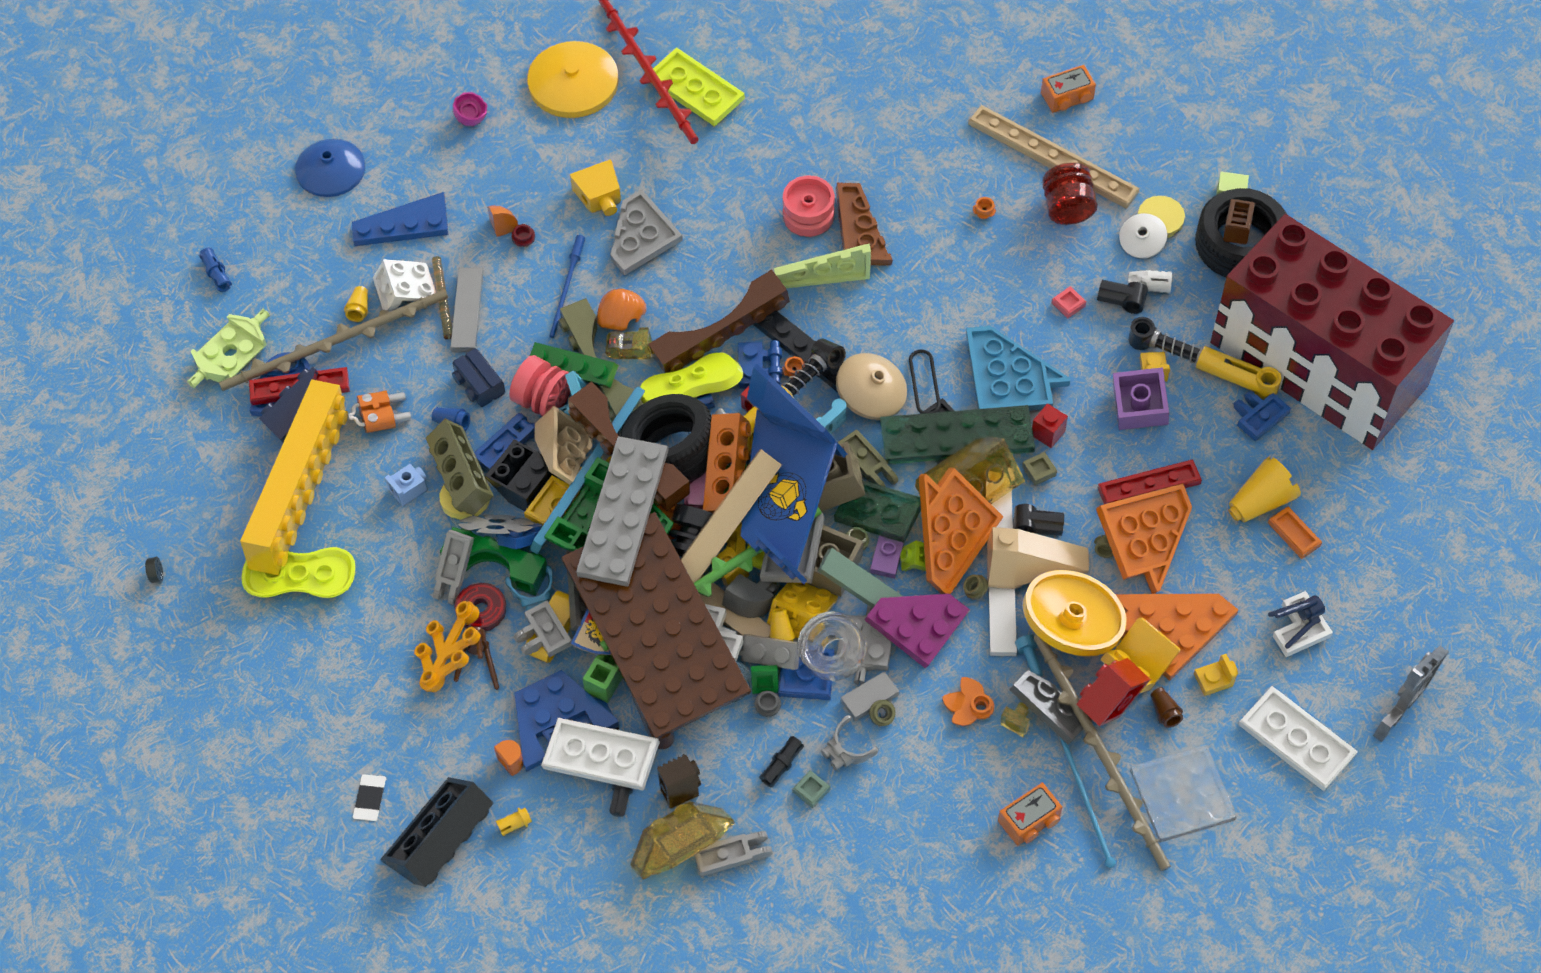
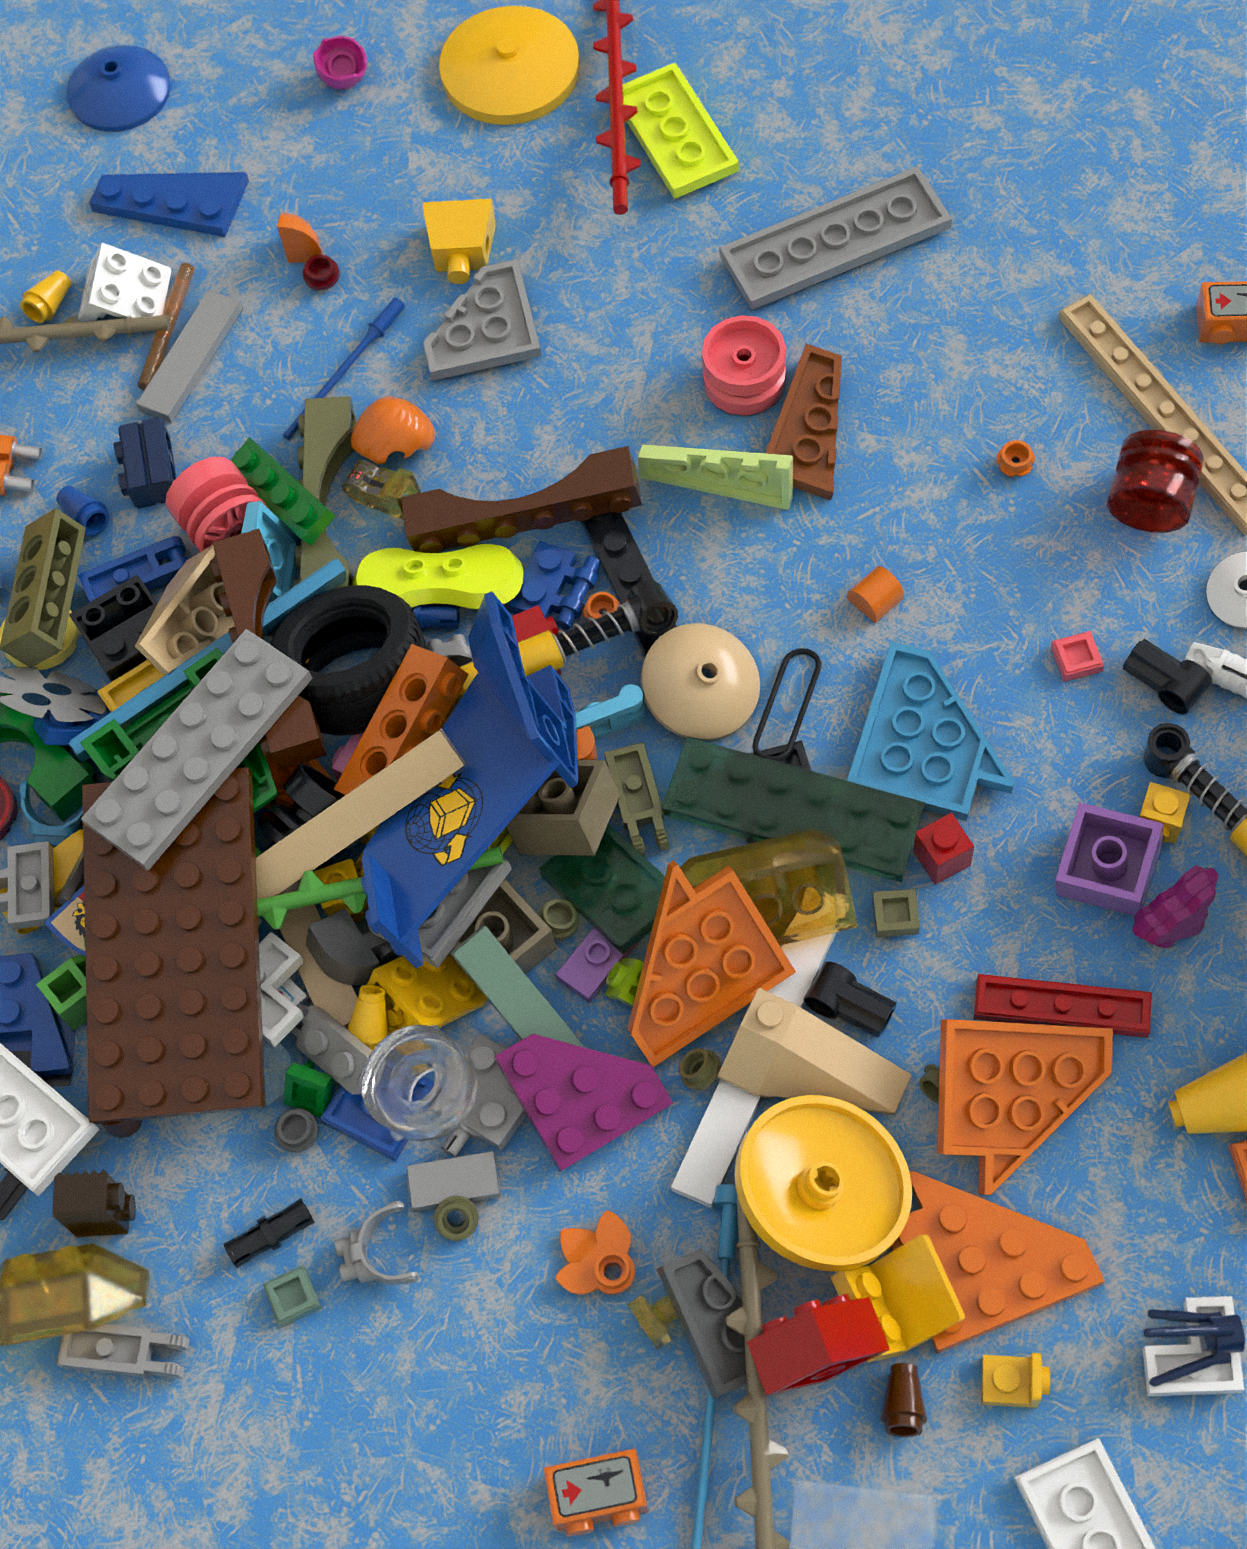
camera: 30 degrees right, 5 degrees up
(821, 119) = (835, 237): none -> light grey plate
(944, 305) = (876, 593): none -> orange brick
(1190, 409) = (1178, 910): none -> magenta rock

